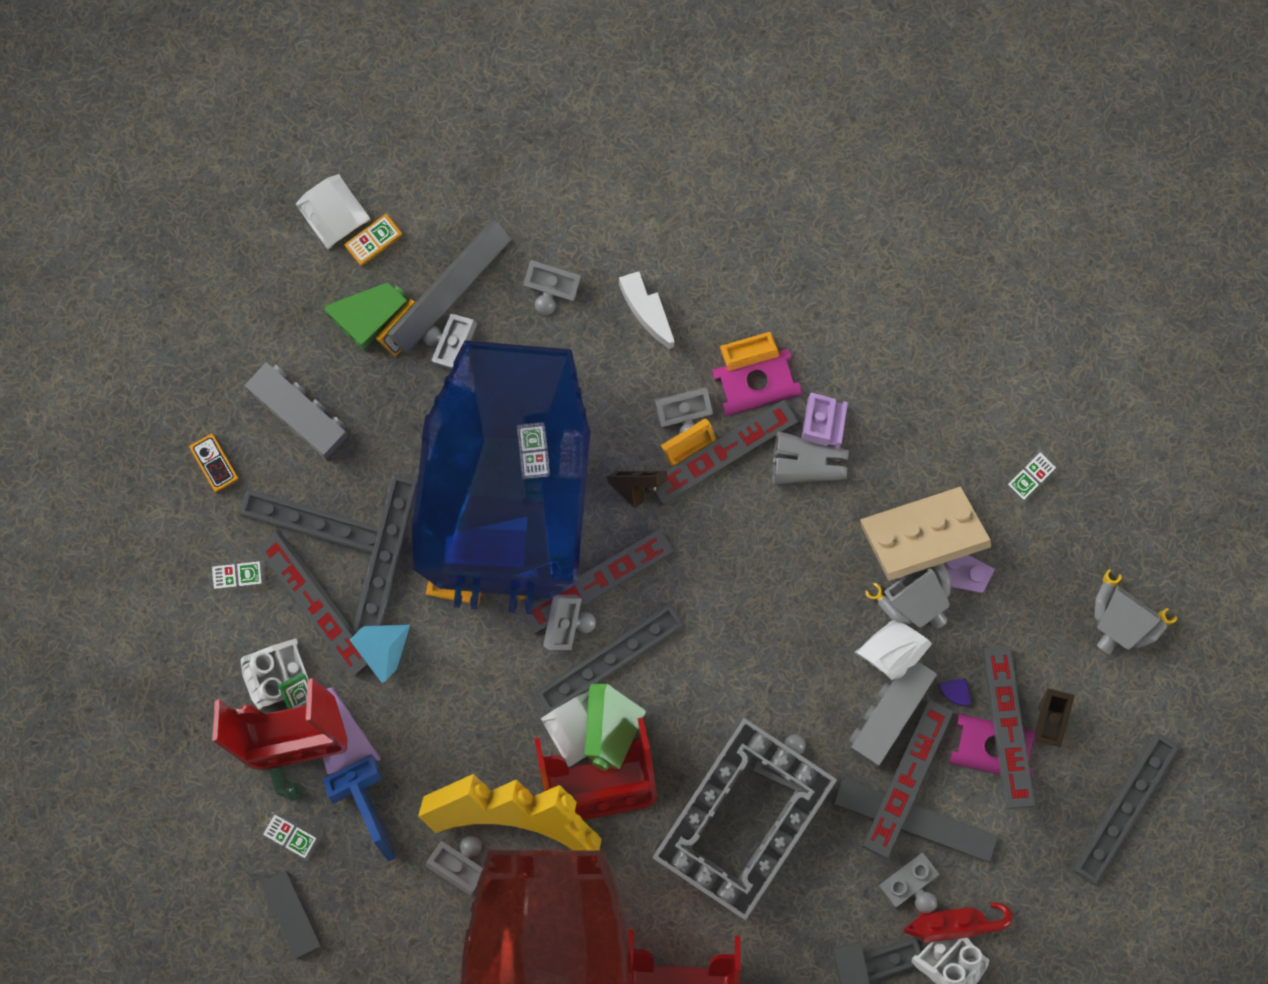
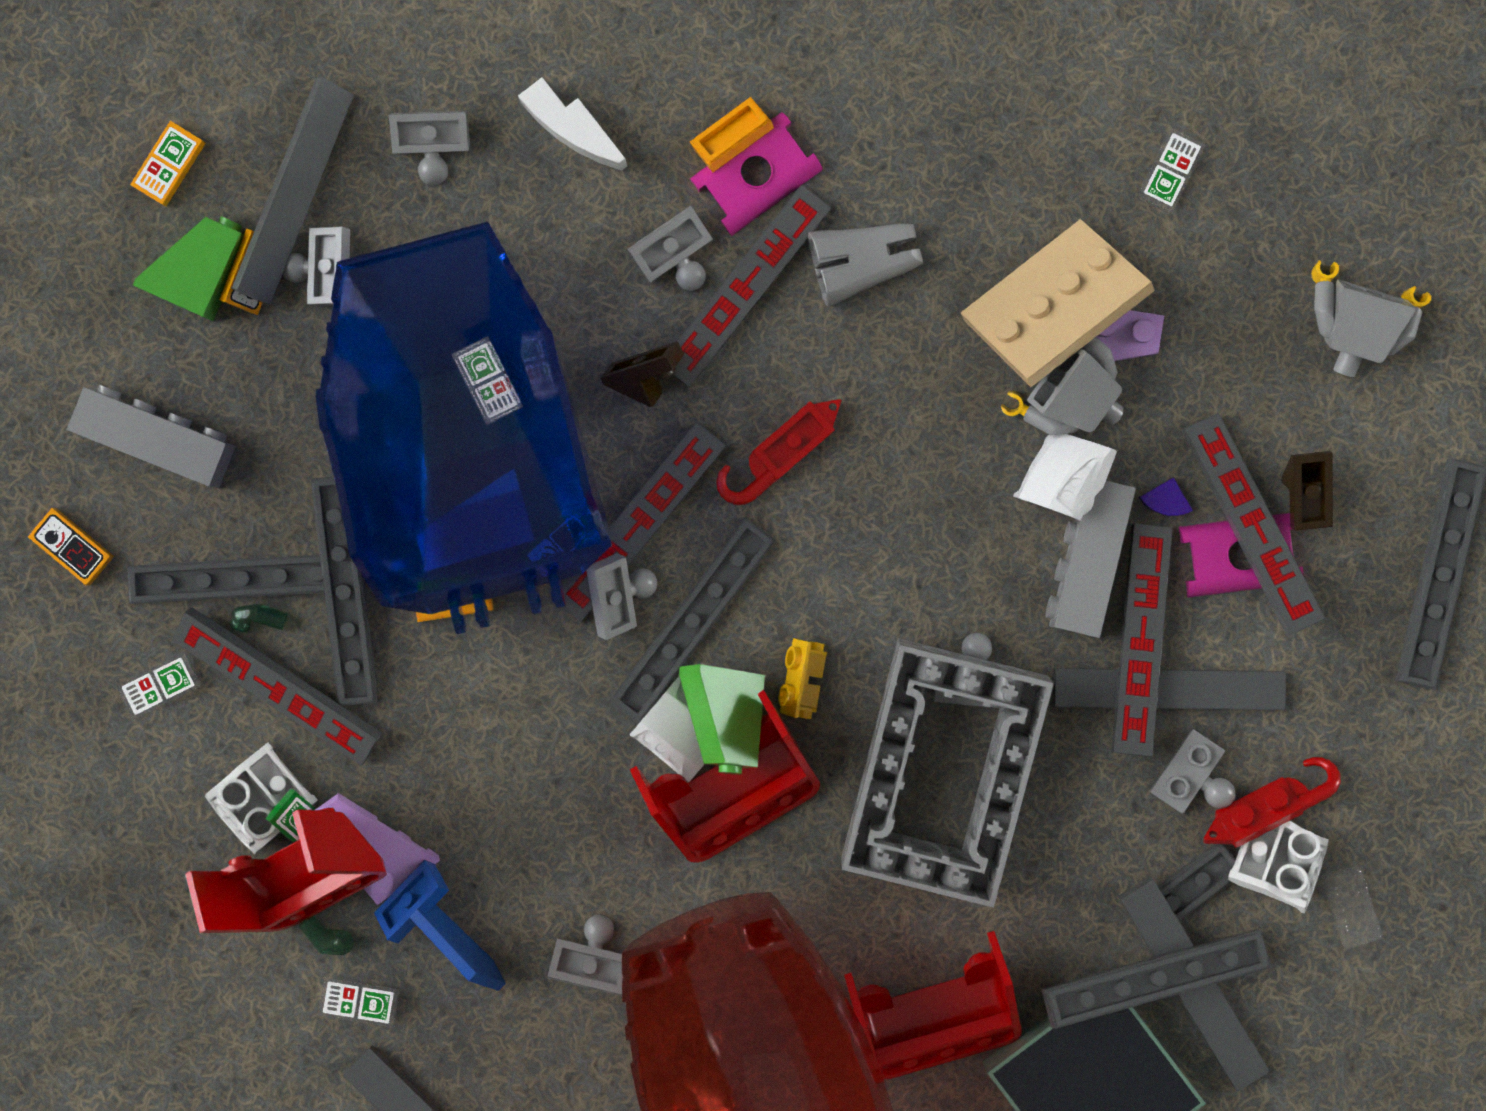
camera: 15 degrees left, 10 degrees up
(321, 550) = (259, 614): none -> clear green arm
(332, 210) = (94, 142): white slope -> none
(381, 647) = (384, 715): medium azure slope -> none
(509, 805) = (634, 868): yellow arch -> none
(674, 712) = (797, 695): none -> yellow hinge
(688, 442) = (694, 291): light orange tile -> none
(710, 567) = (782, 450): none -> red plate
(824, 420) = (866, 195): lavender plate -> none

